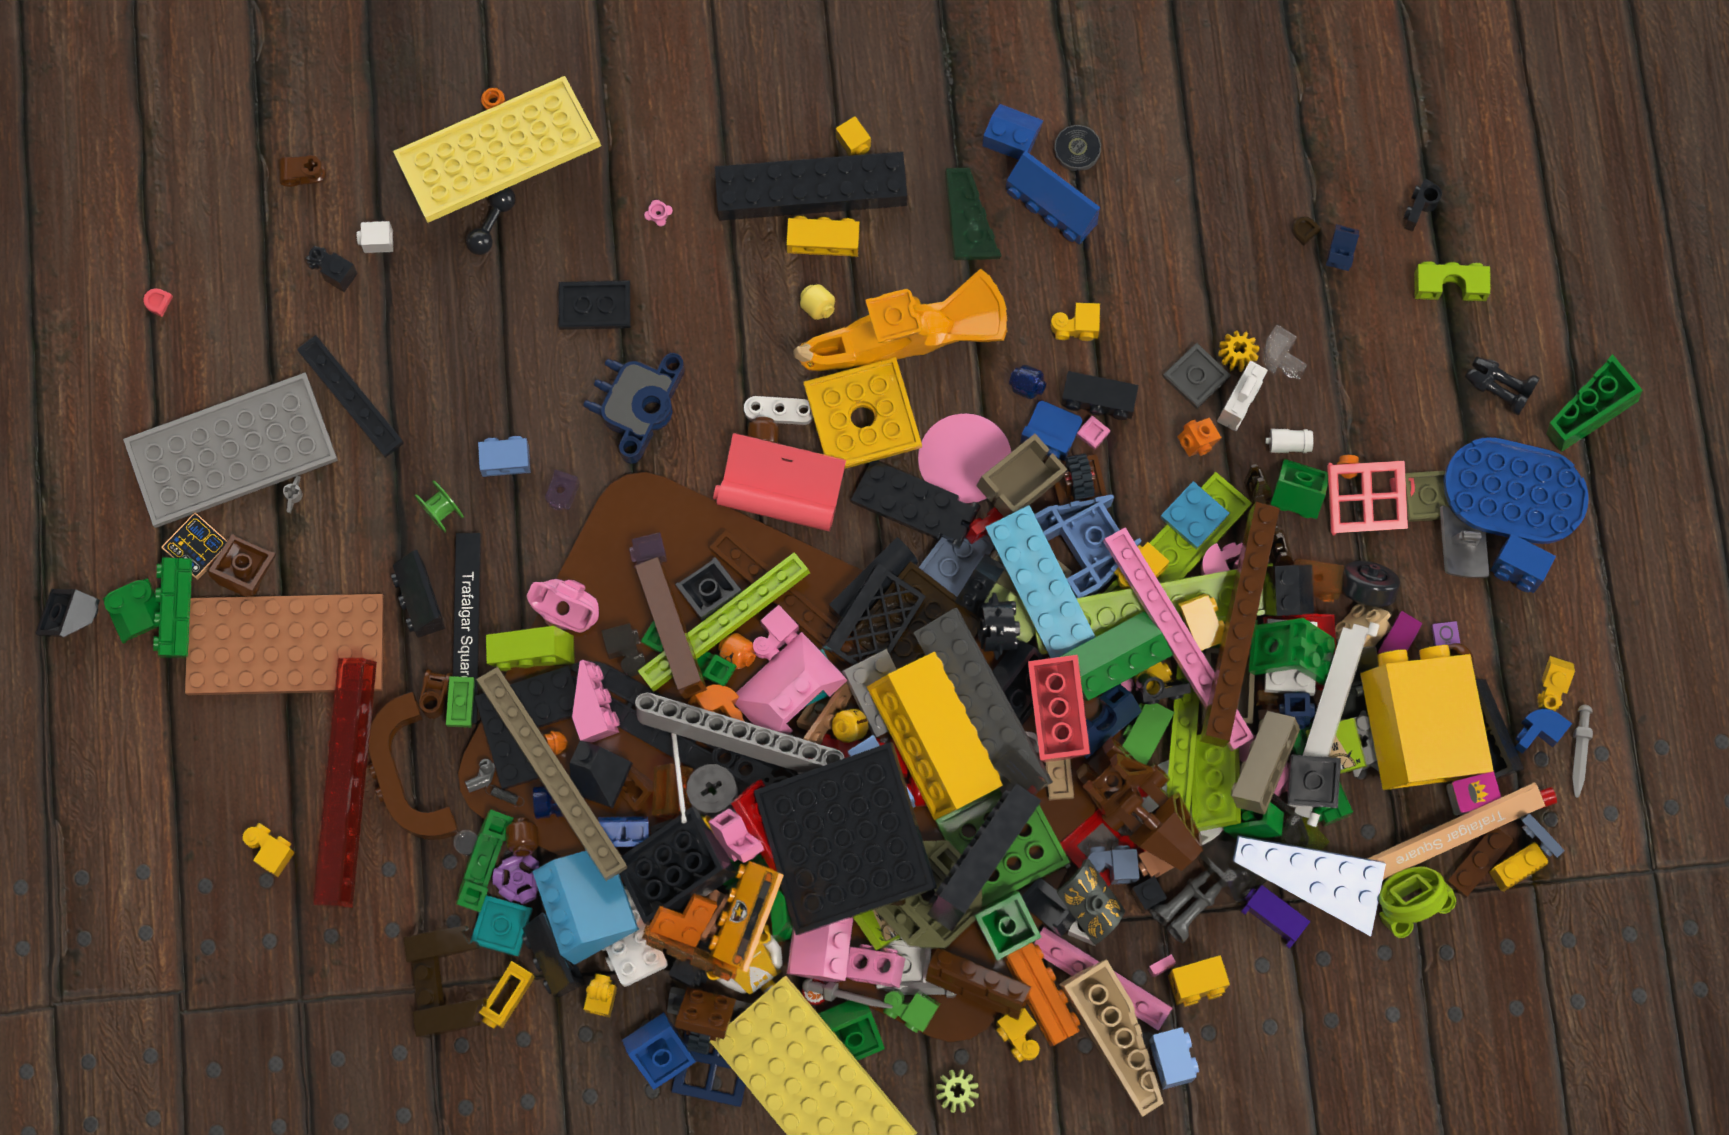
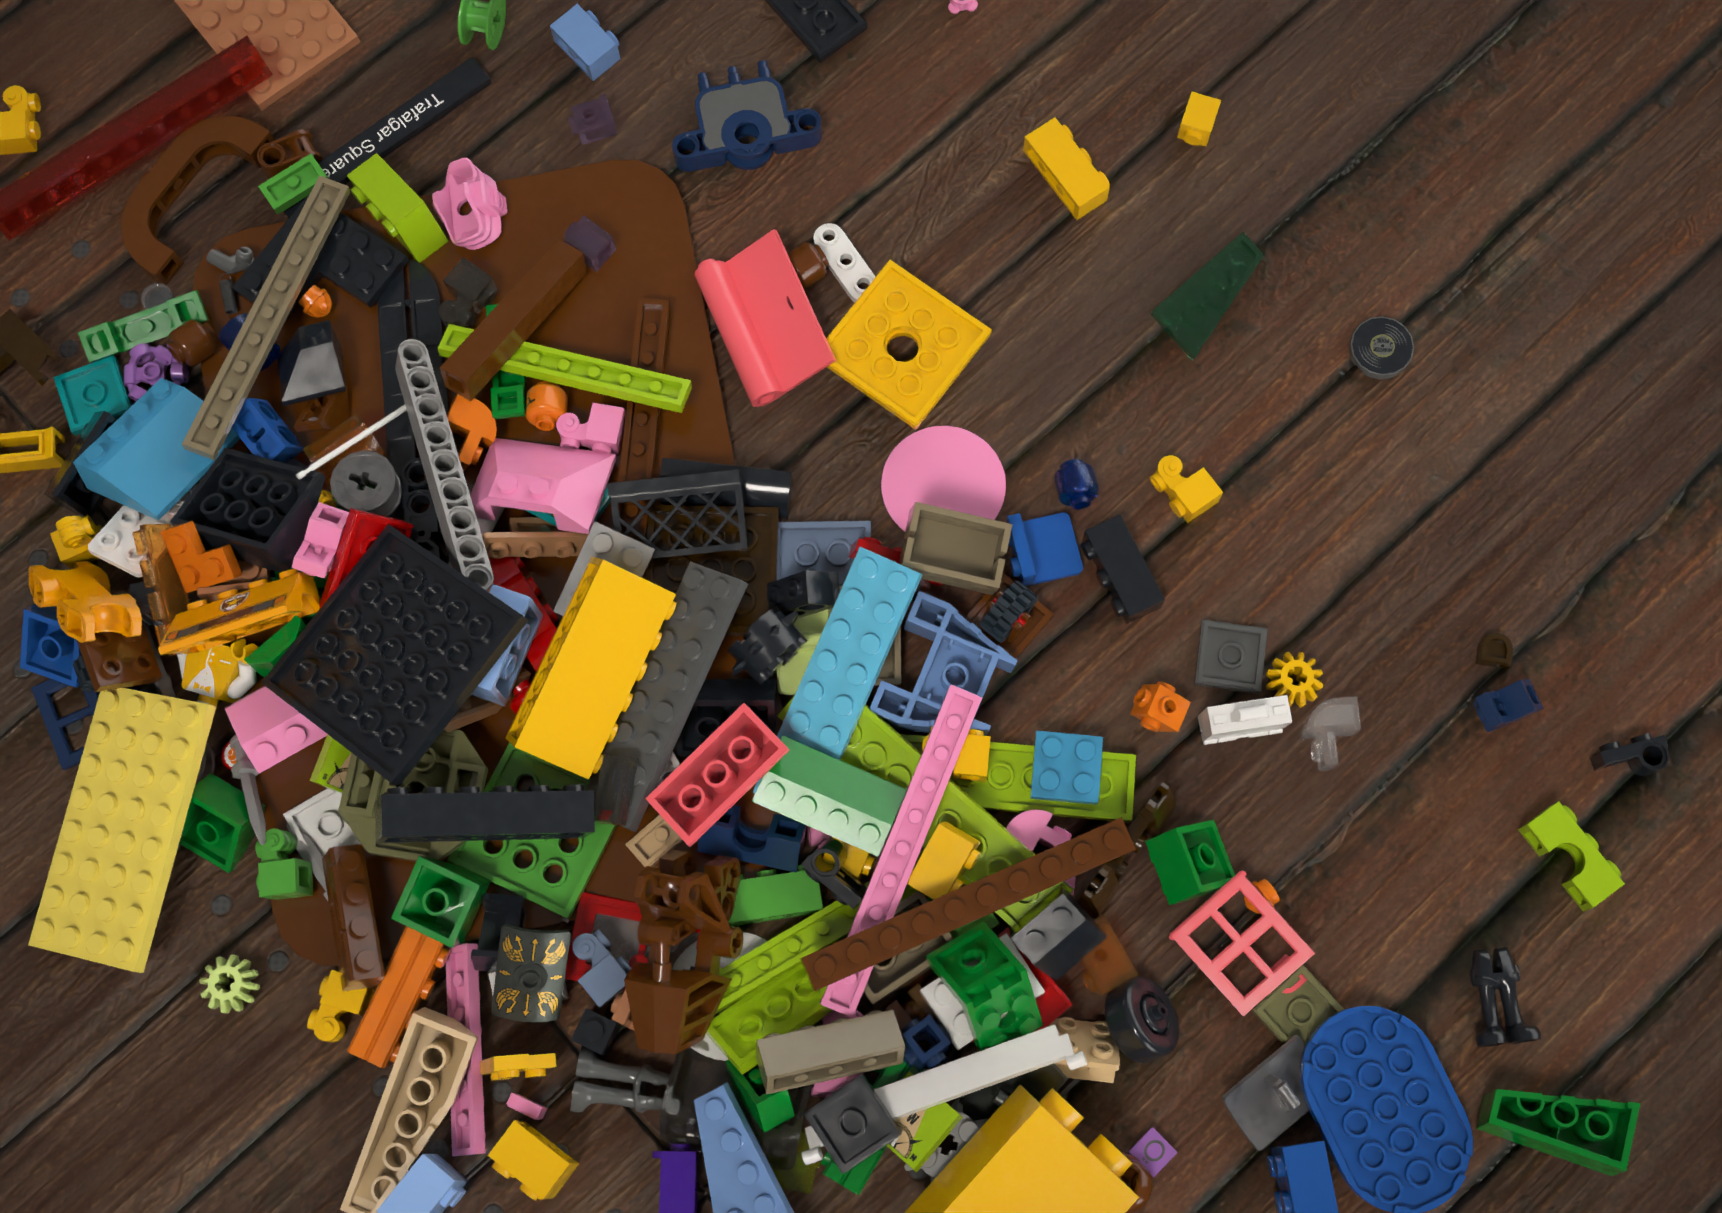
camera: 55 degrees right, 0 degrees up
(417, 595) = (379, 67): black slope -> none
(591, 705) = (375, 302): bright pink slope -> none
(662, 1008) = (84, 601): none -> light orange piece
(708, 589) = (590, 329): black slope -> none
(811, 186) = (1111, 117): black brick -> none
(817, 301) = (991, 213): light yellow head -> none
(850, 725) = (542, 573): yellow head -> none
(873, 971) = (298, 801): bright pink brick -> none
(906, 328) = (1026, 312): light orange animal -> none
(914, 503) = (849, 467): black hinge -> none
(1011, 132) = (1340, 268): blue slope -> none
(1052, 198) = (1300, 360): blue slope -> none
(1093, 432) = (1077, 594): bright pink tile -> none
(1136, 953) = (510, 1065): none -> yellow plate
(1290, 441) = (1237, 810): white piece -> none
(1401, 634) = (1107, 1100): magenta slope -> none

